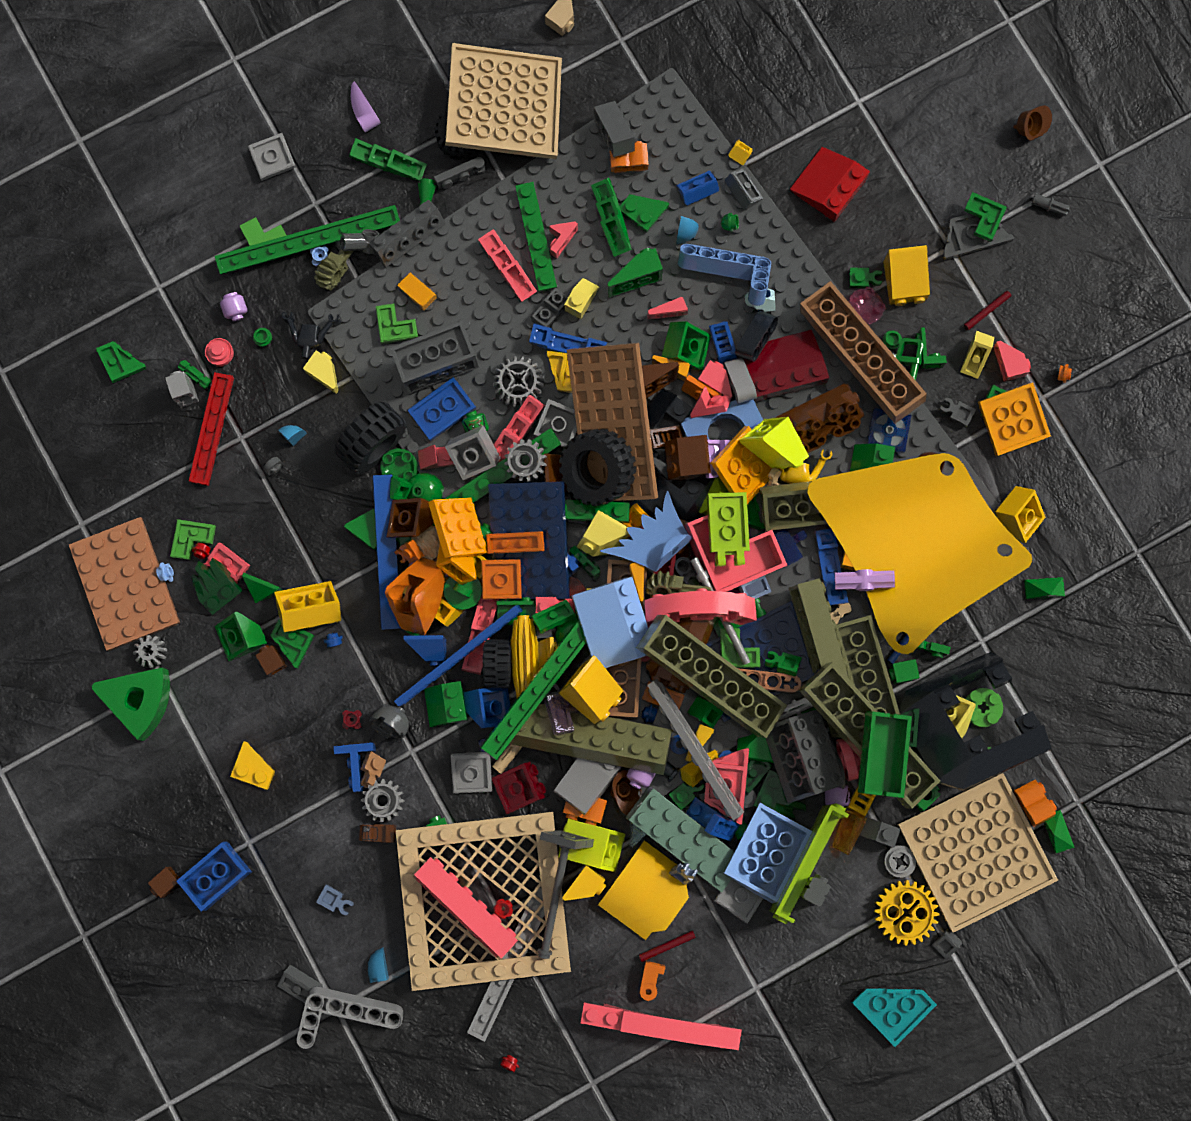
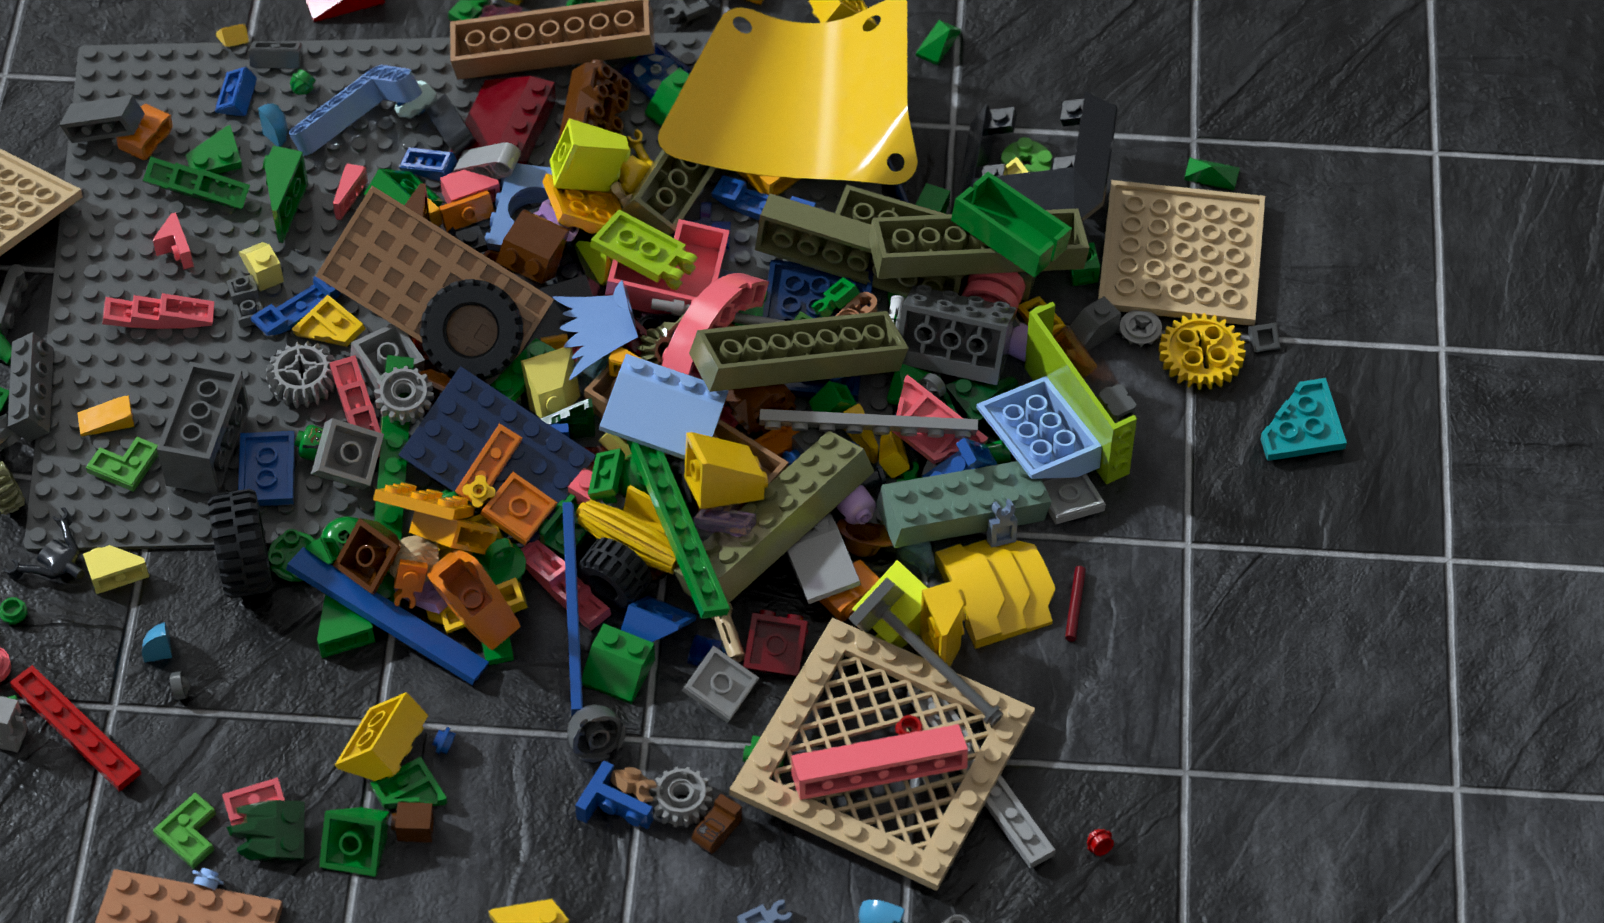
camera: 60 degrees left, 25 degrees down
(201, 551) = (215, 823): red plate -> none
(259, 589) = (314, 784): green slope -> none
(347, 715) = (553, 771): dark red plate -> none
(429, 647) = (535, 639): blue slope -> none
(434, 458) = (317, 506): coral slope -> none
(495, 555) = (471, 491): none -> yellow plate
(536, 237) = (151, 269): green plate -> none
(649, 979) = (1102, 639): orange leg -> none
(660, 1027) = (1122, 688): coral slope -> none
(708, 406) = (486, 210): coral slope -> none
(758, 765) = (933, 384): none -> dark grey tile
(864, 580) = (804, 166): lavender piece -> none
(936, 649) = (929, 165): green plate -> none
(1035, 803) = (1166, 168): orange brick -> none

